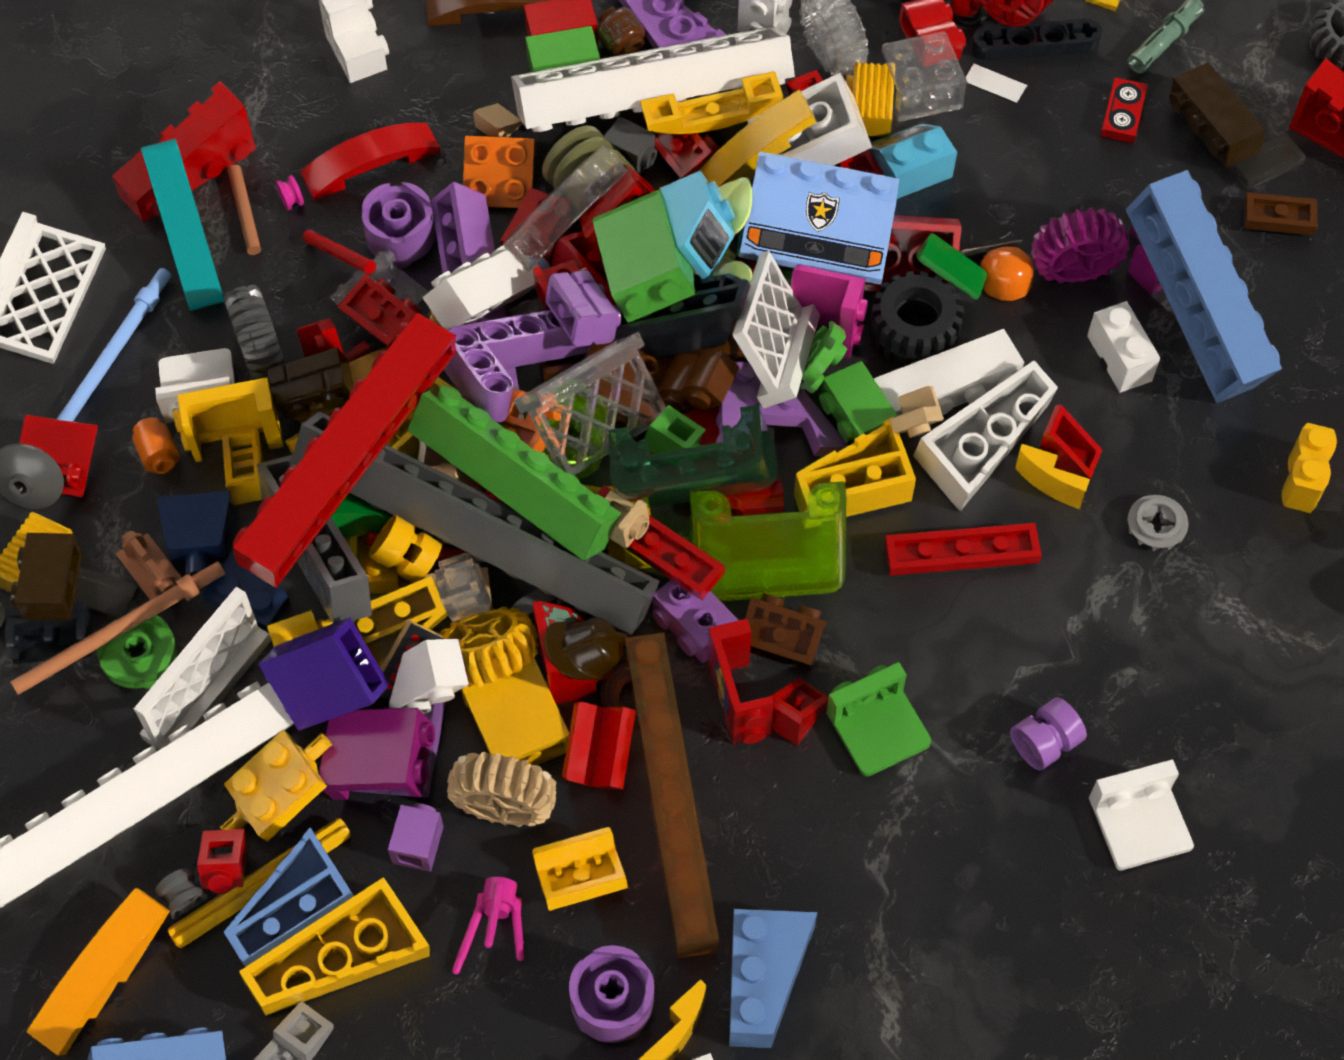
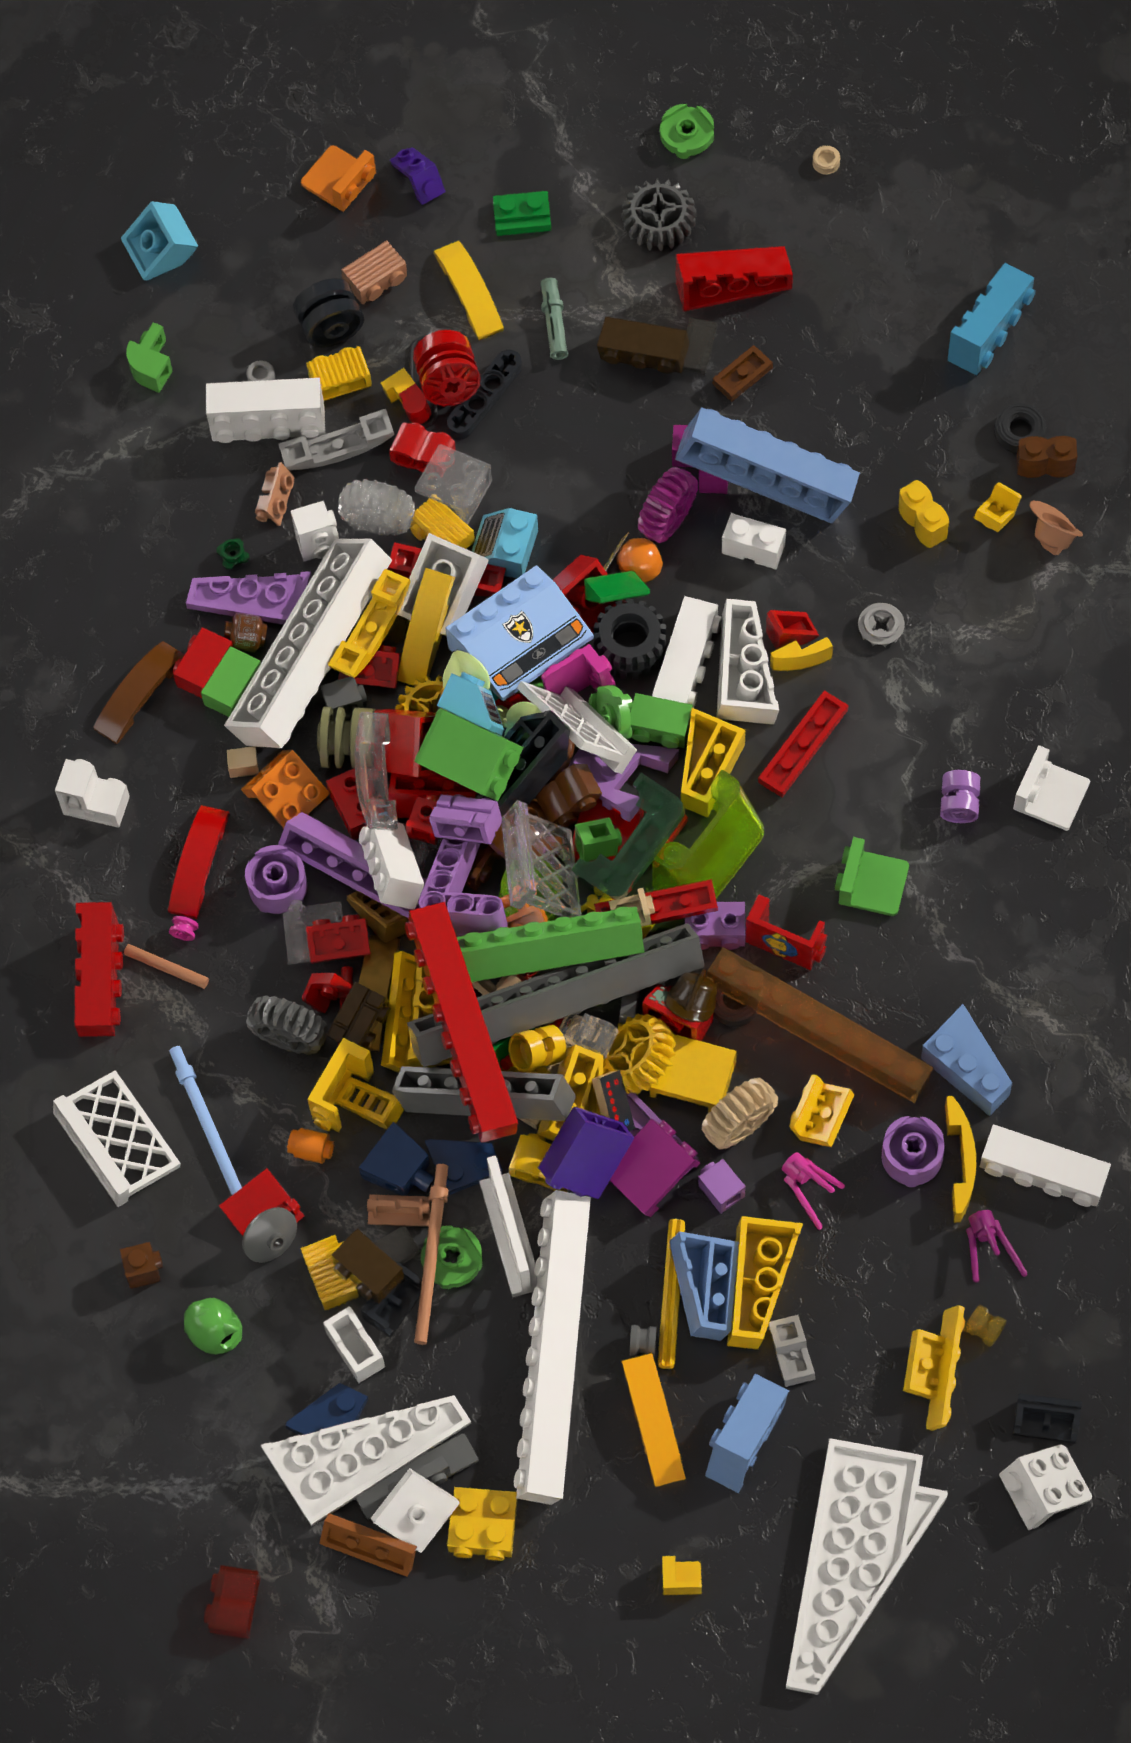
camera: 45 degrees left, 5 degrees up
(182, 224) = (159, 1008): teal beam -> none
(189, 374) = (283, 1089): white bracket -> none
(222, 871) = (650, 1304): red brick -> none
(276, 784) = (620, 1238): yellow plate -> none
(339, 252) = (265, 931): red bar -> none
(429, 675) = (638, 1094): white slope -> none
(598, 746) = (756, 1040): red panel -> none
(785, 630) = (772, 880): reddish brown bracket -> none
(797, 710) = (826, 910): red slope -> none
(919, 411) = (703, 691): tan bracket -> none
(995, 83) = (492, 445): white sticker -> none
(1124, 110) = (585, 391): tile -> none

